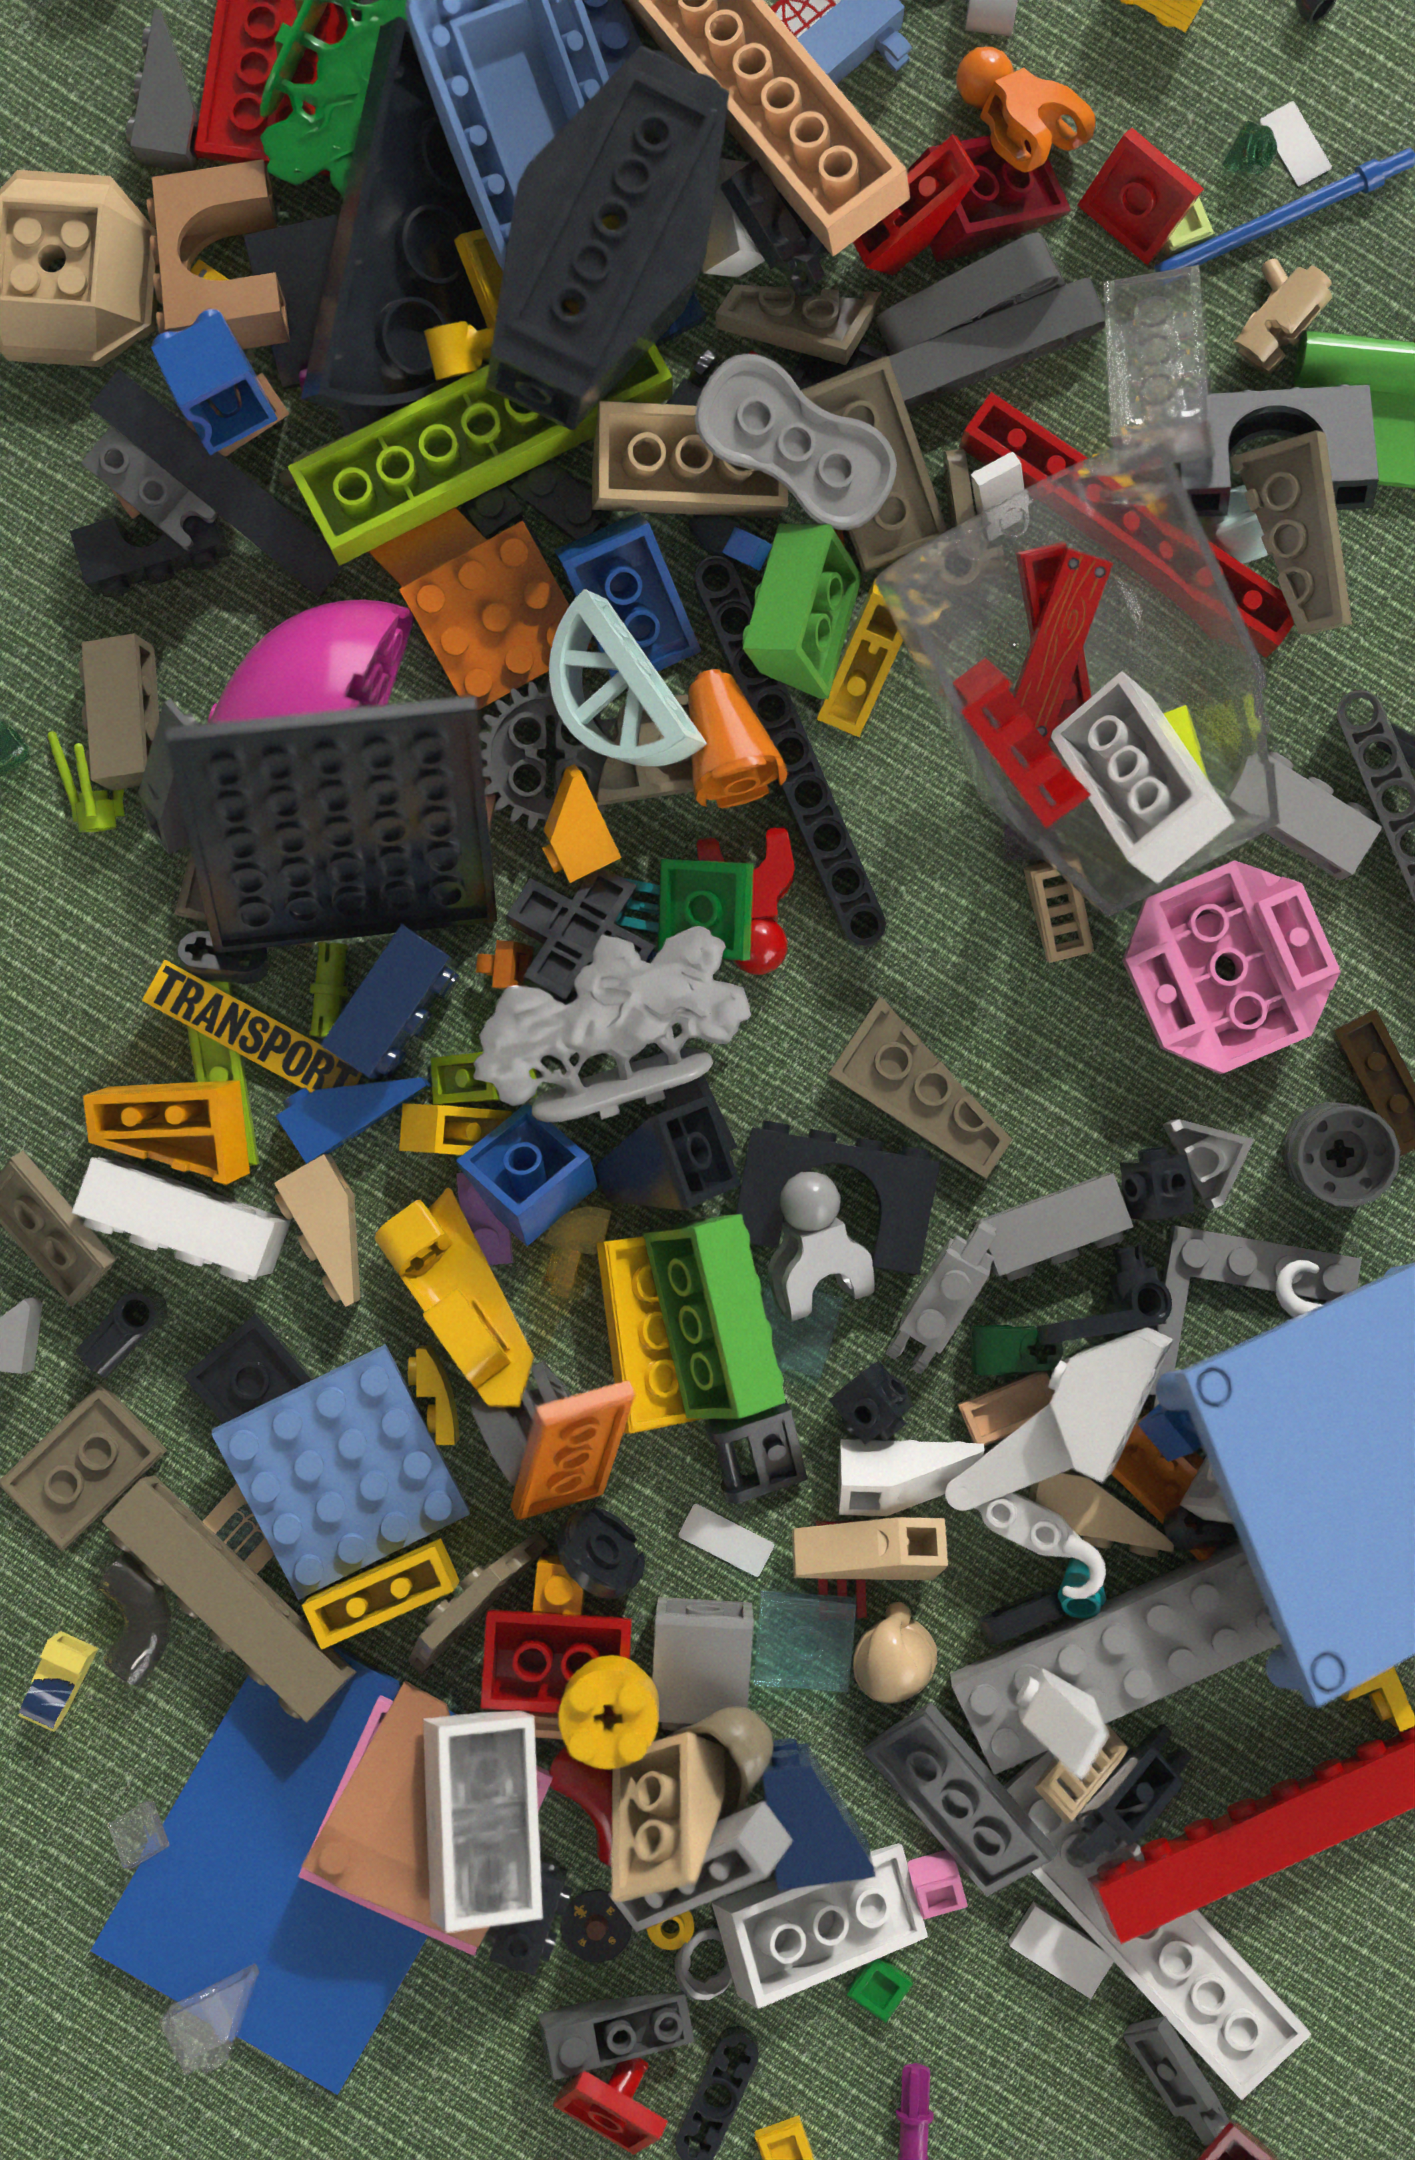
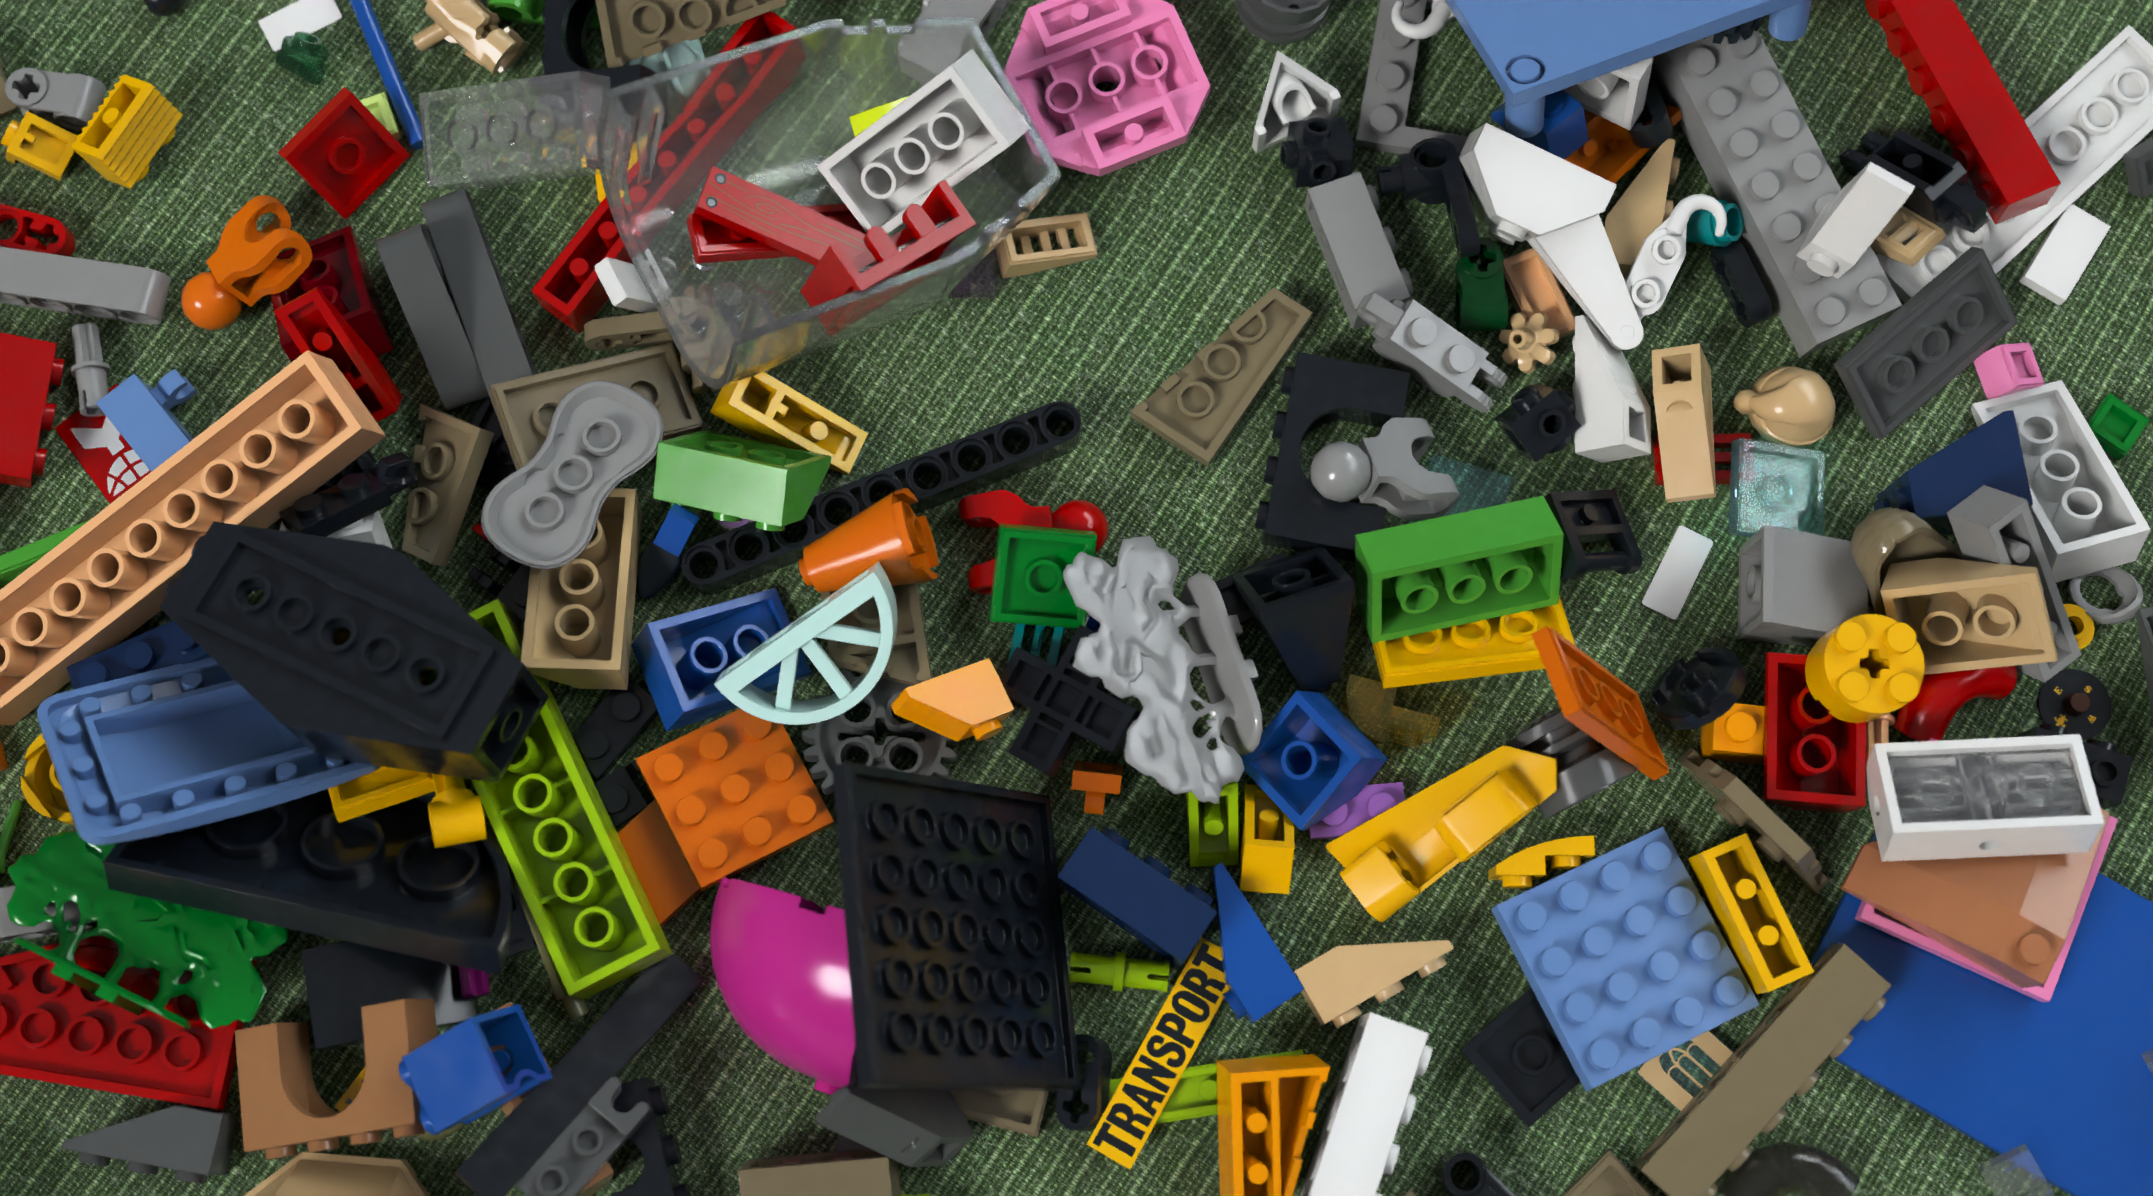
camera: 90 degrees left, 10 degrees down
(959, 1397) = (1529, 341): none -> tan plant

